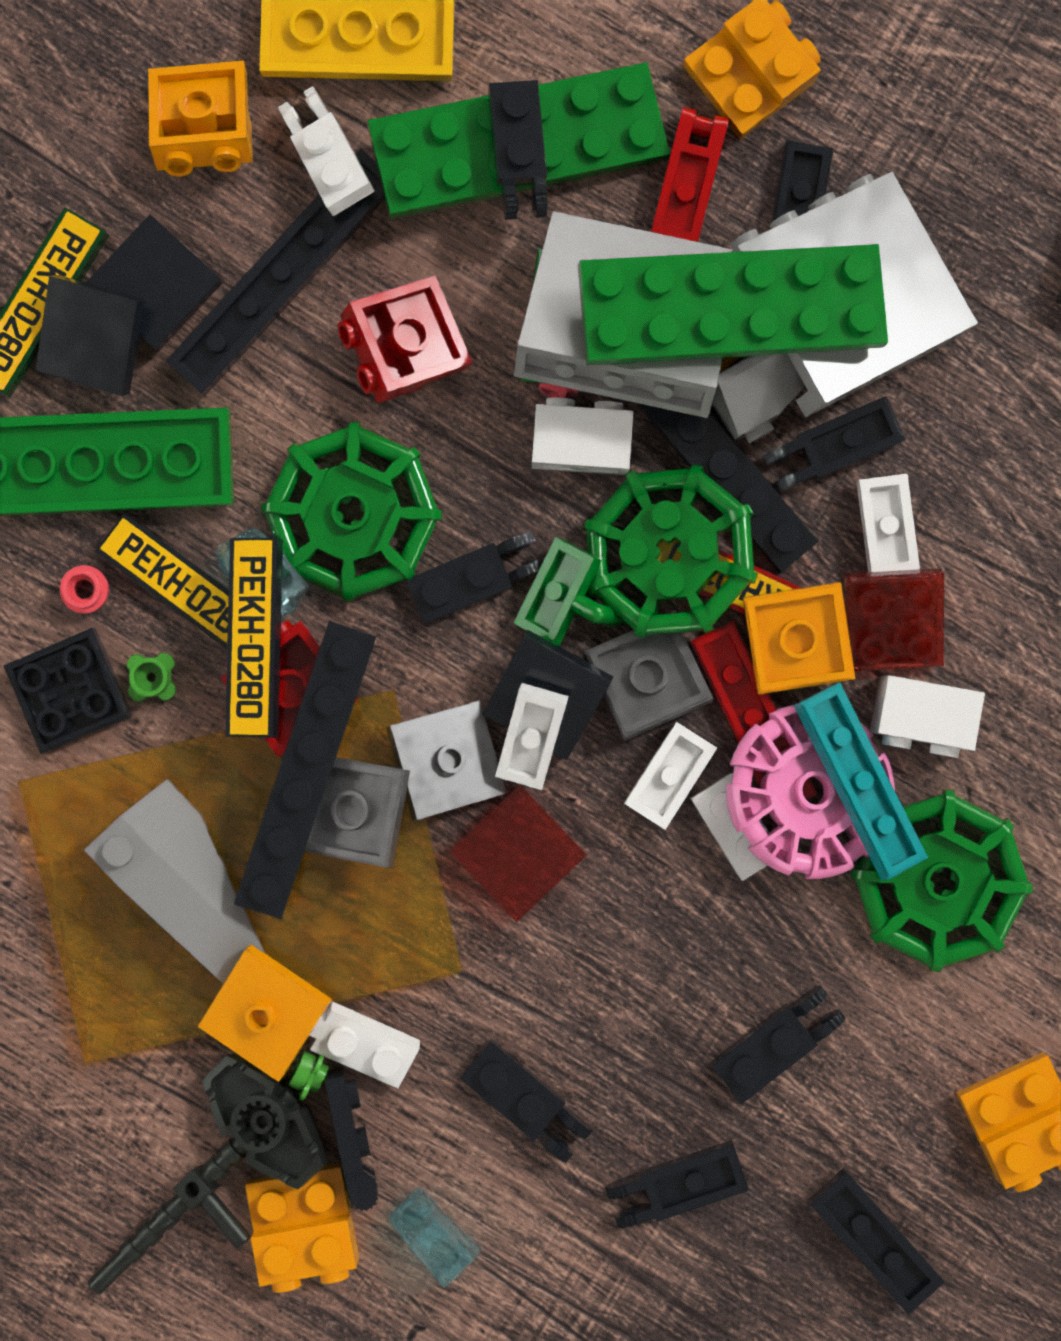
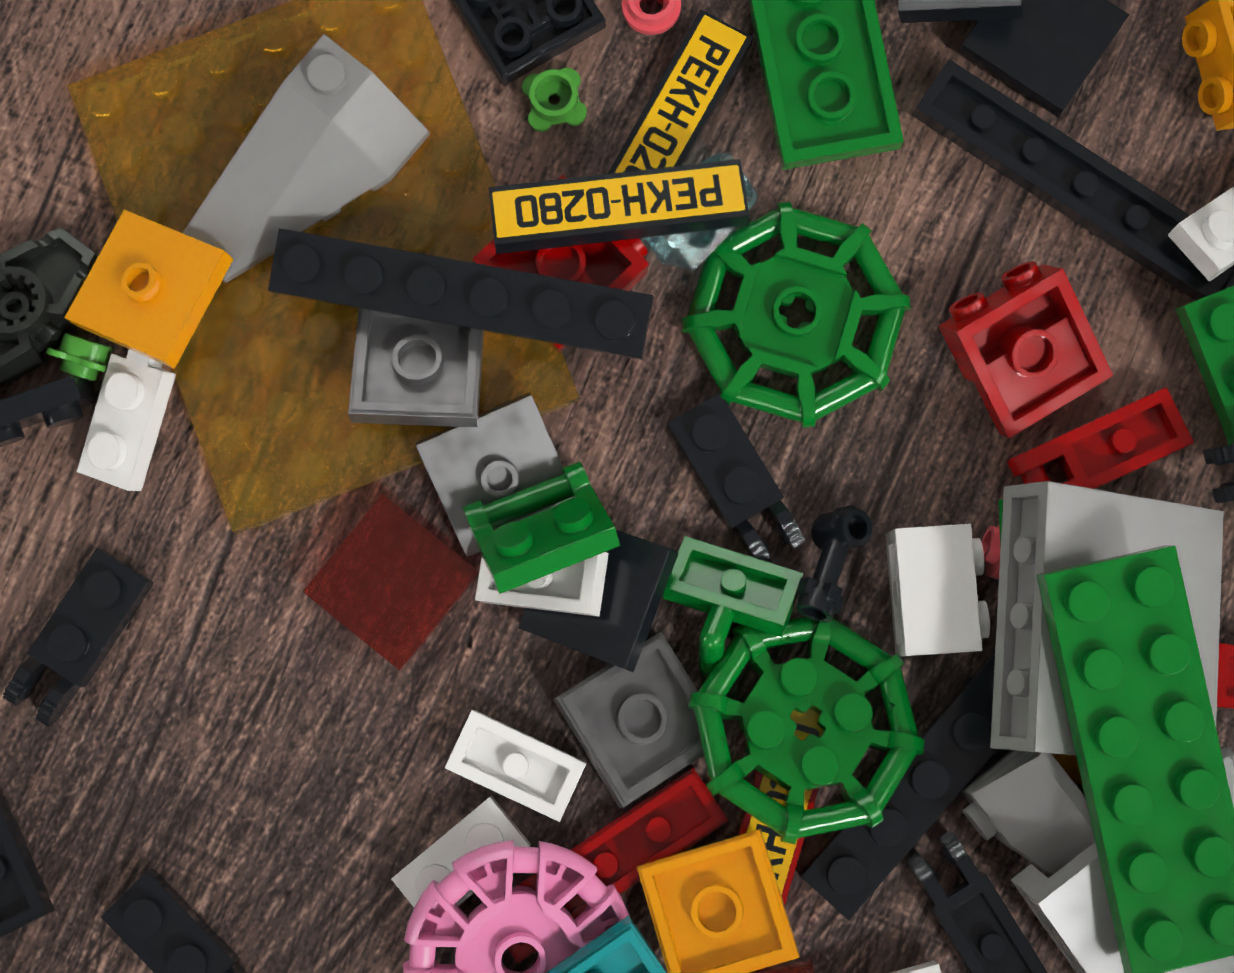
camera: 85 degrees right, 5 degrees down
(489, 289) = (1109, 444): none -> red plate
(505, 729) = (546, 540): none -> green plate
(529, 508) = (834, 535): none -> black bar

